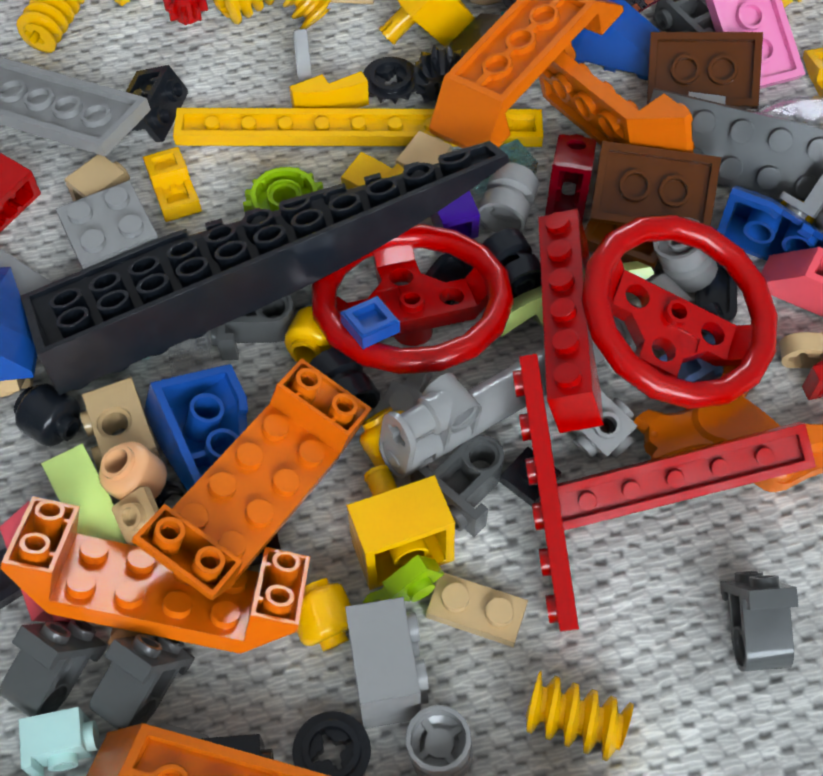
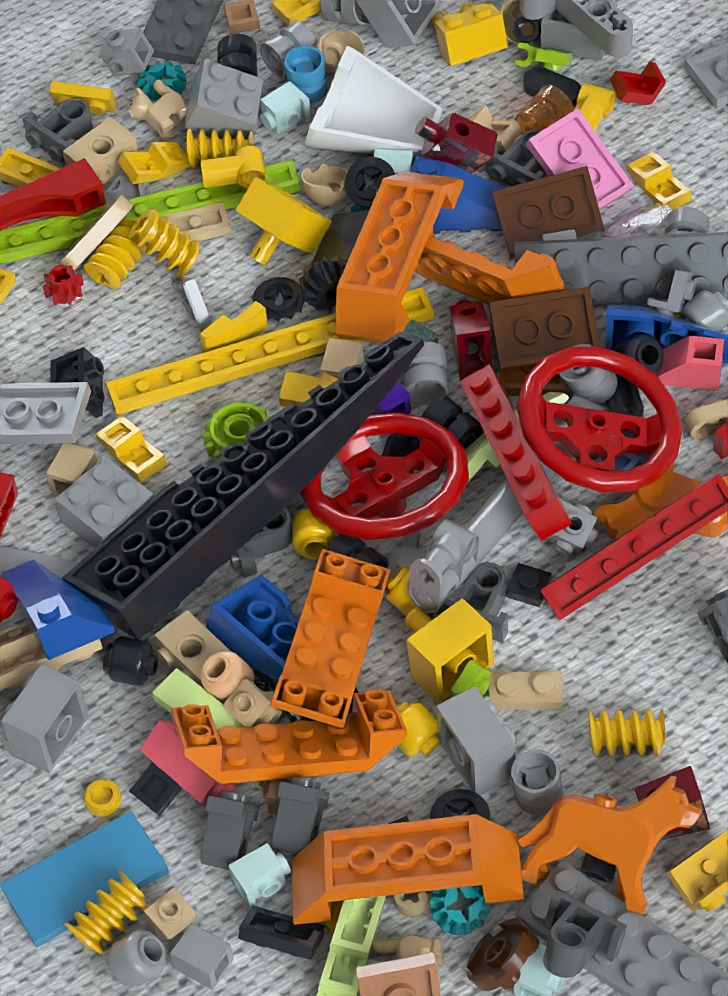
camera: 15 degrees left, 5 degrees down
(370, 322) = (365, 504): blue tile -> none
(547, 513) = (554, 601): red plate -> none
(760, 246) = (643, 349): none -> black head

